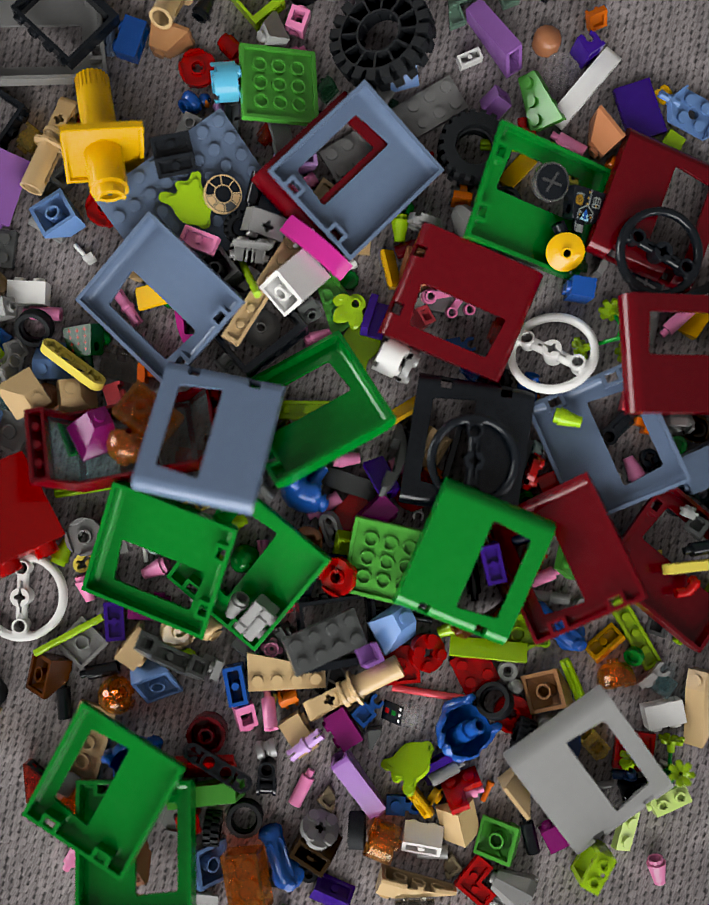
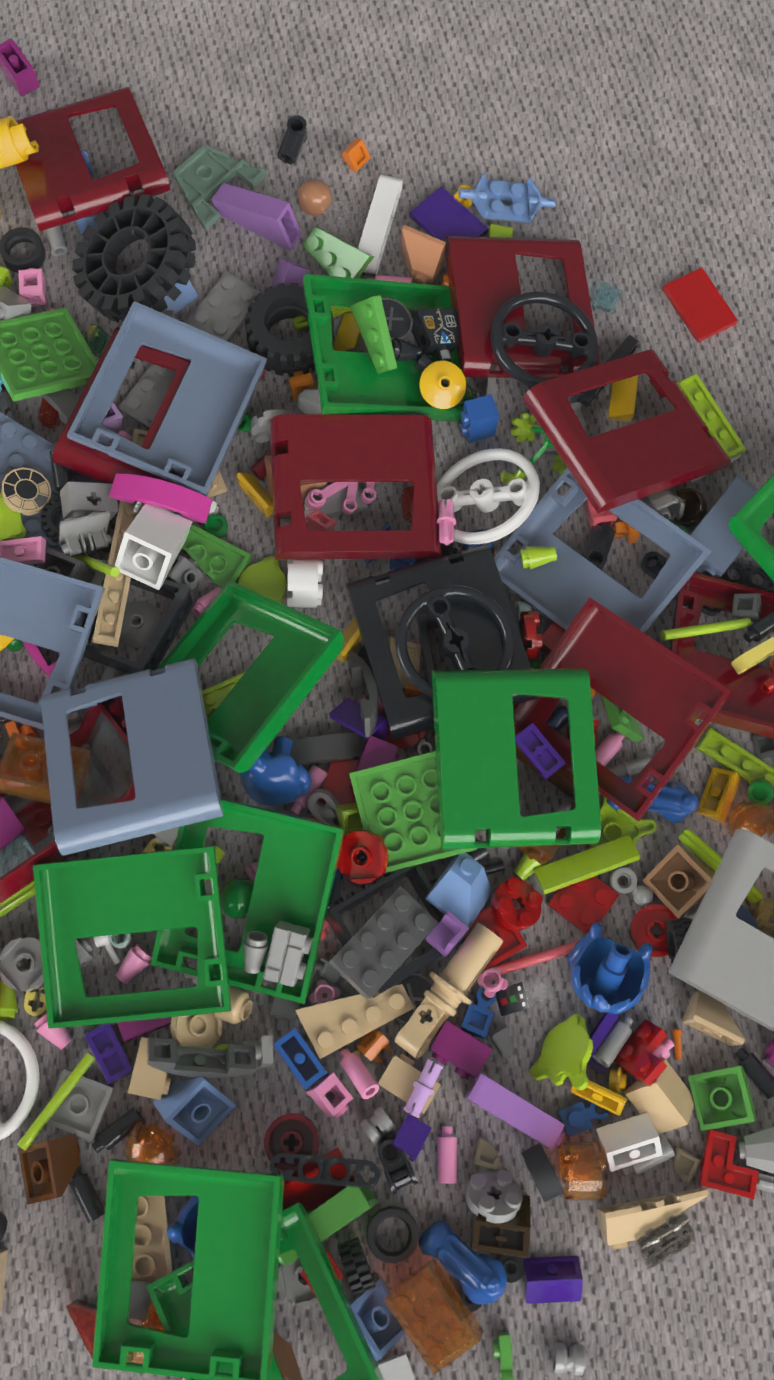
camera: 30 degrees left, 15 degrees down
(124, 447) = (29, 817): clear orange cylinder -> none
(284, 768) = (411, 1136): none -> dark purple panel
(347, 312) = (230, 557): lime plate -> none
(347, 459) = (306, 723): bright pink cone -> none
(373, 318) = (264, 553): dark purple panel -> none
(390, 697) = (492, 974): none -> bright pink plate
(399, 227) = (246, 444): lime cone -> none
(411, 361) = (327, 581): light grey plate -> none
(469, 58) = (240, 247): white piece -> none
(473, 583) = (528, 795): black cylinder -> none
(480, 698) = (610, 914): black tyre -> none
(514, 361) = (446, 522): none -> bright pink axle
(534, 188) = (375, 333): none -> bright green wing
(546, 211) = (405, 351): none -> black cone
(585, 51) = (360, 185): dark purple hinge -> none
(633, 469) = (639, 581): bright pink cone -> none
(657, 531) = (705, 629): none -> lime bar
(675, 323) = (603, 407): bright pink cylinder -> none
(689, 512) = (728, 593): light grey plate -> none

